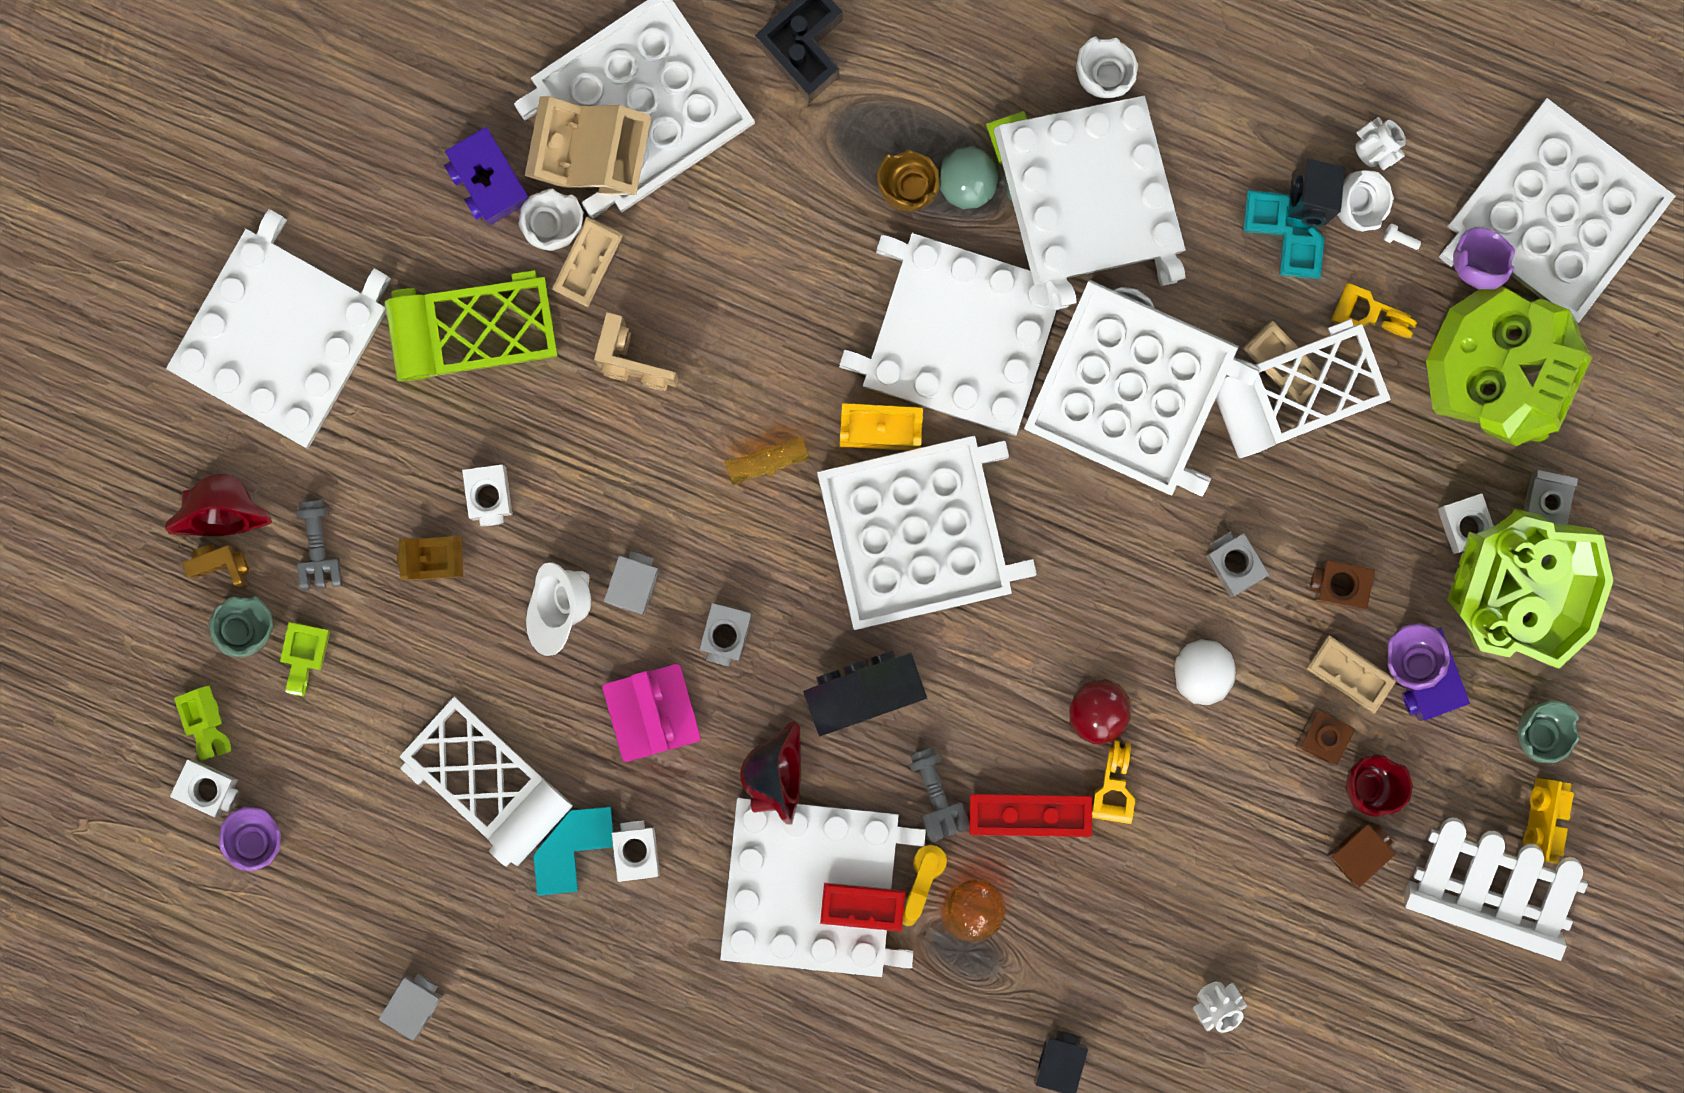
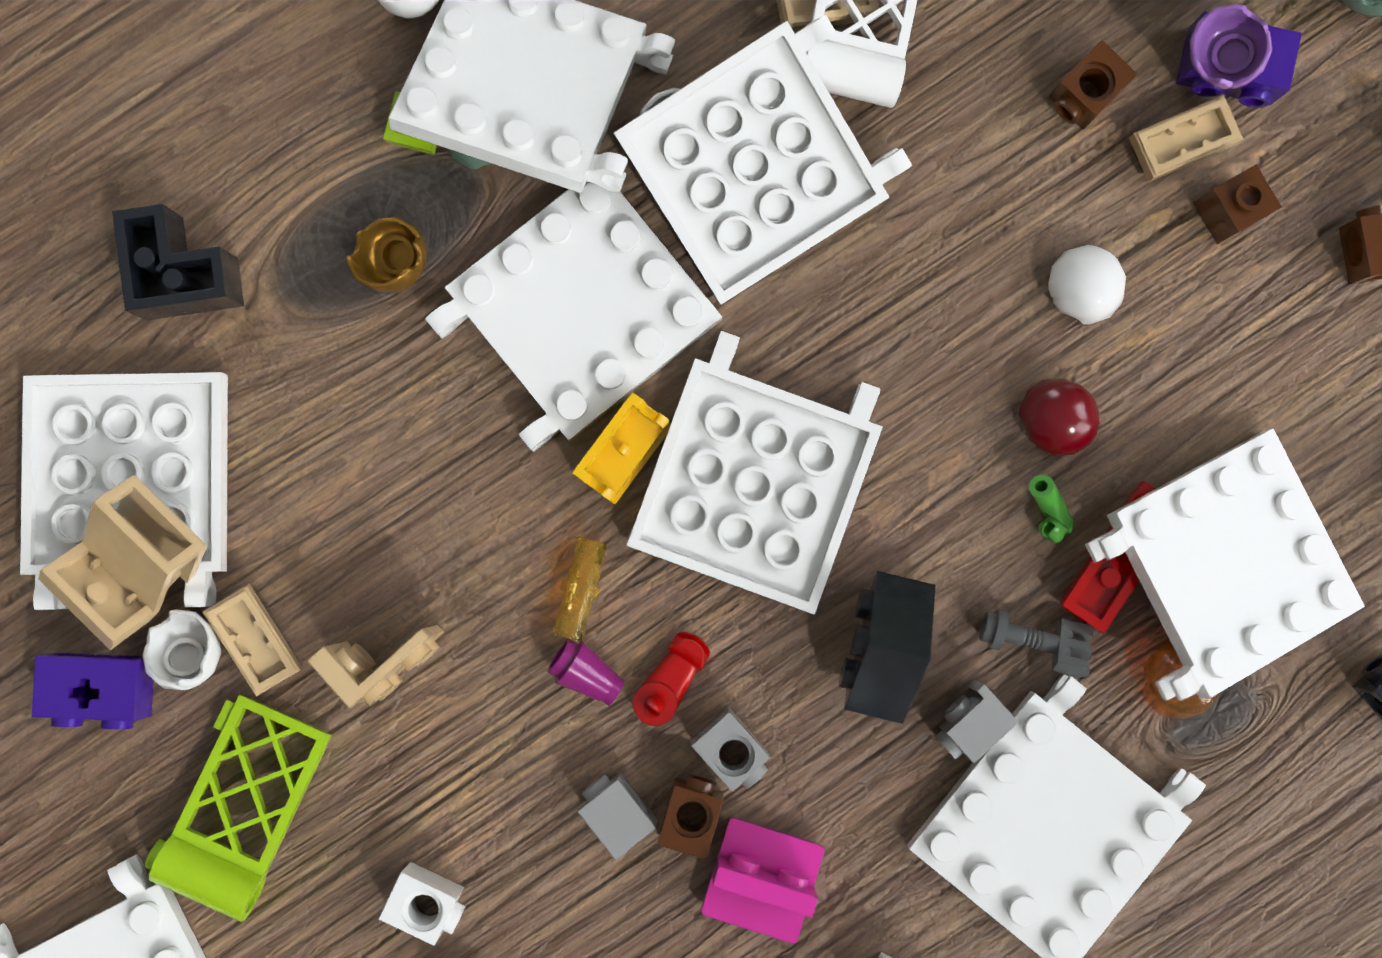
camera: 55 degrees left, 0 degrees up
(556, 604) = (587, 908): white piece -> none
(645, 631) = (691, 838): none -> reddish brown brick
(712, 501) = (585, 672): none -> magenta cone
(740, 562) = (667, 684): none -> red piece
(774, 774) = (911, 797): hat -> none
(850, 786) = (974, 724): none -> light grey brick
(862, 907) = (1111, 795): red plate -> none
(928, 865) = (1106, 694): yellow piece -> none
(968, 177) = (427, 193): sand green hair -> none
(1035, 745) = (1051, 504): none -> bright green arm
(1074, 891) = (1232, 565): none -> white plate
(1116, 757) = (1119, 431): yellow piece -> none
(1252, 572) = (1017, 167): light grey brick -> none
(1378, 786) = (1323, 182): dark red hair -> none

